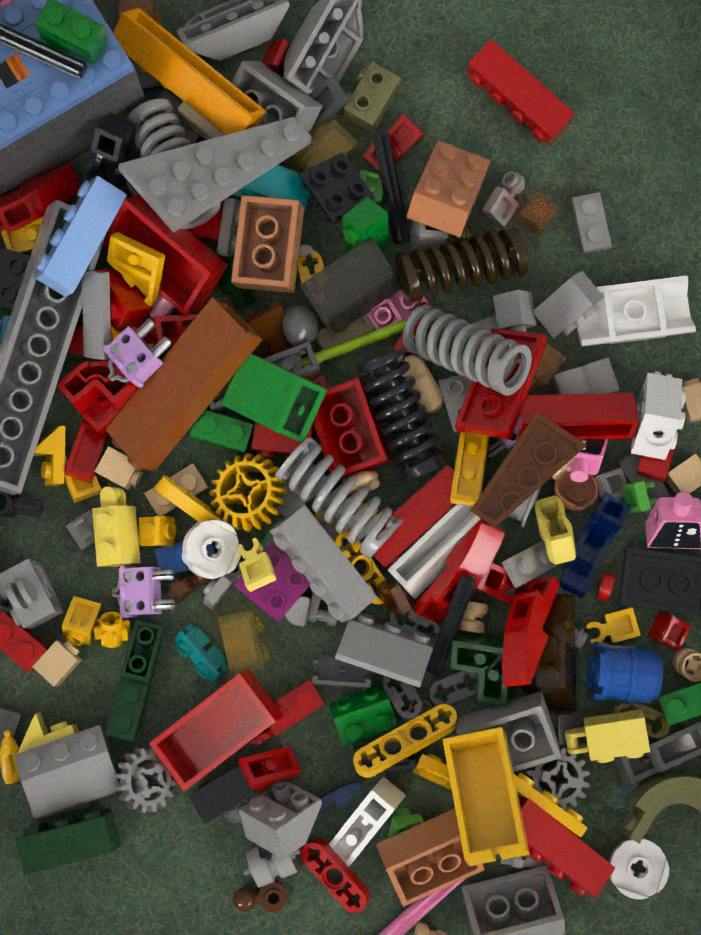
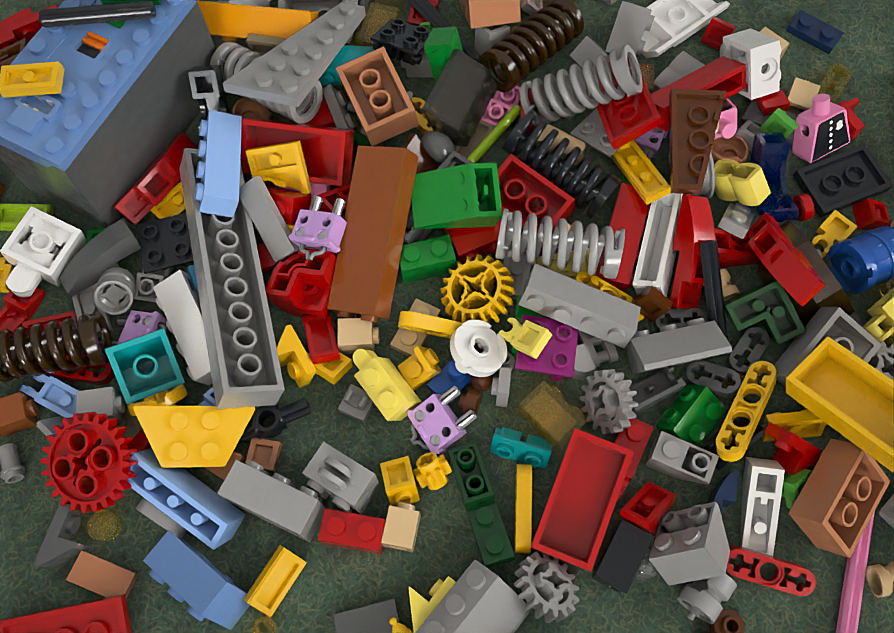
camera: 30 degrees left, 15 degrees down
(169, 704) = (523, 509): none -> yellow beam
(295, 661) = (608, 401): none -> light grey gear
(325, 747) = (681, 459): none -> light grey slope
(424, 795) = (793, 452): none -> red slope
(663, 355) = (716, 31): none -> red tile

